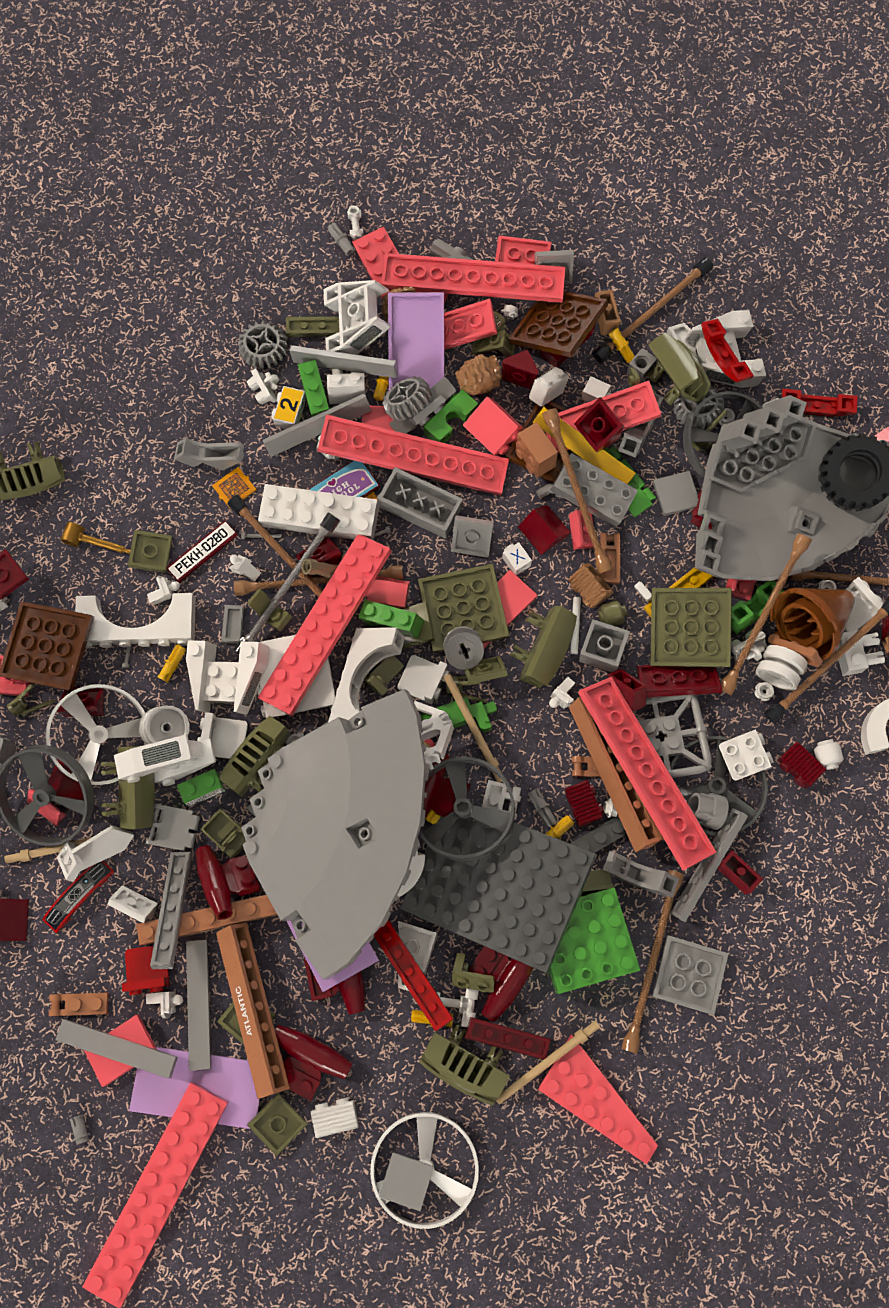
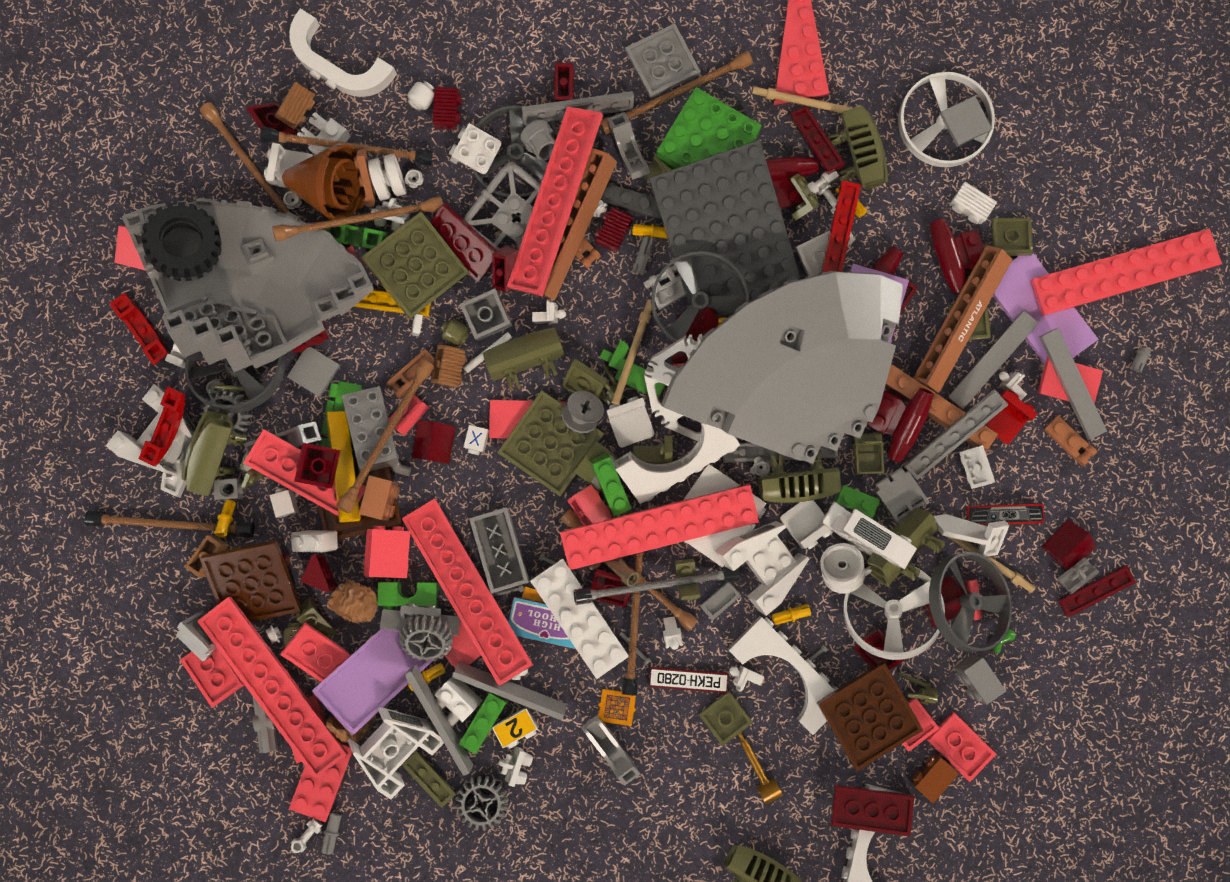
camera: 135 degrees left, 10 degrees up
(472, 536) = (489, 487): light grey bracket -> none

